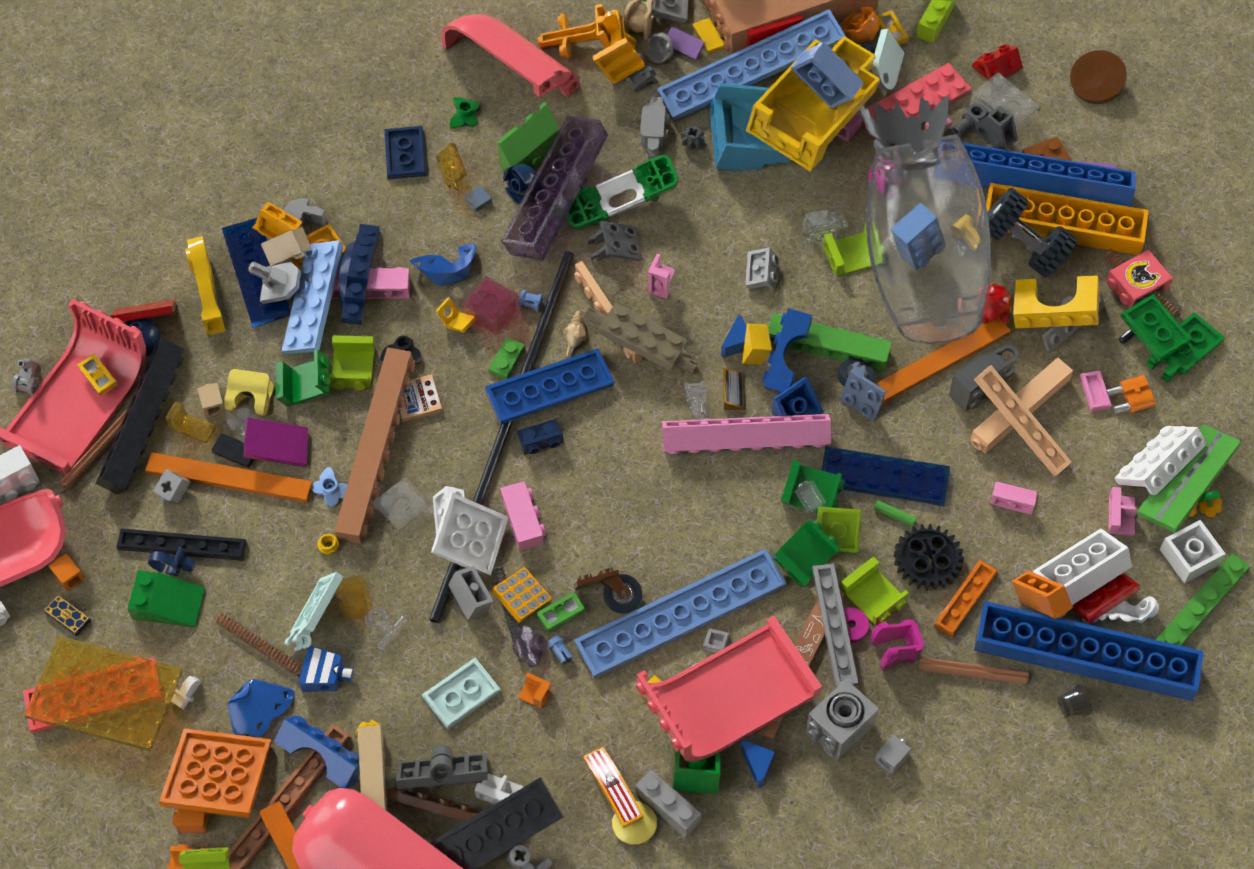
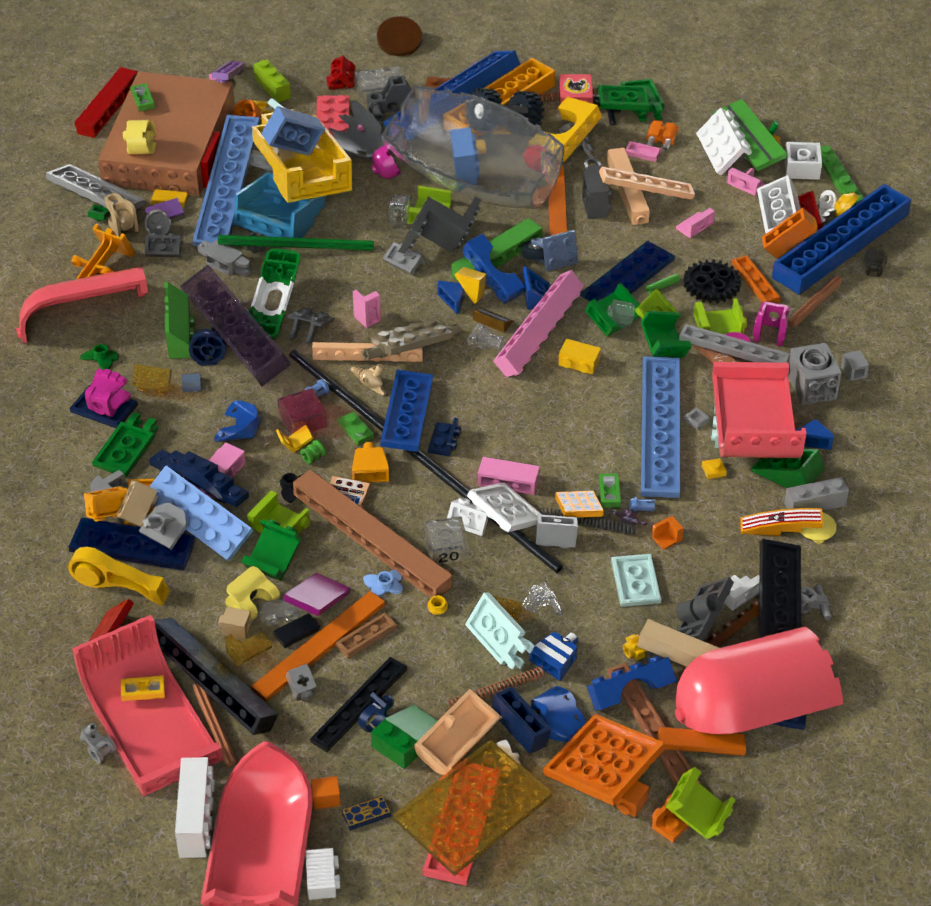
camera: 60 degrees left, 15 degrees down
(182, 638) = (456, 733): none -> light nougat container
(223, 681) = (521, 720): none -> dark blue brick
(261, 507) = (366, 635): none -> medium nougat tile
(367, 197) = (126, 445): none -> green tile
(405, 145) = (105, 392): none -> dark pink piece
(450, 341) = (313, 452): none -> bright green bush
(462, 395) = (370, 464): none -> light orange torso
(620, 57) = (151, 241): light orange piece -> none
(621, 591) = (615, 445): plate -> none
(712, 170) = (295, 242): none -> green axle
(726, 492) = (579, 356): none -> yellow brick
(814, 273) = (441, 225): none -> dark grey bracket
(1145, 626) = (844, 203): none -> yellow piece

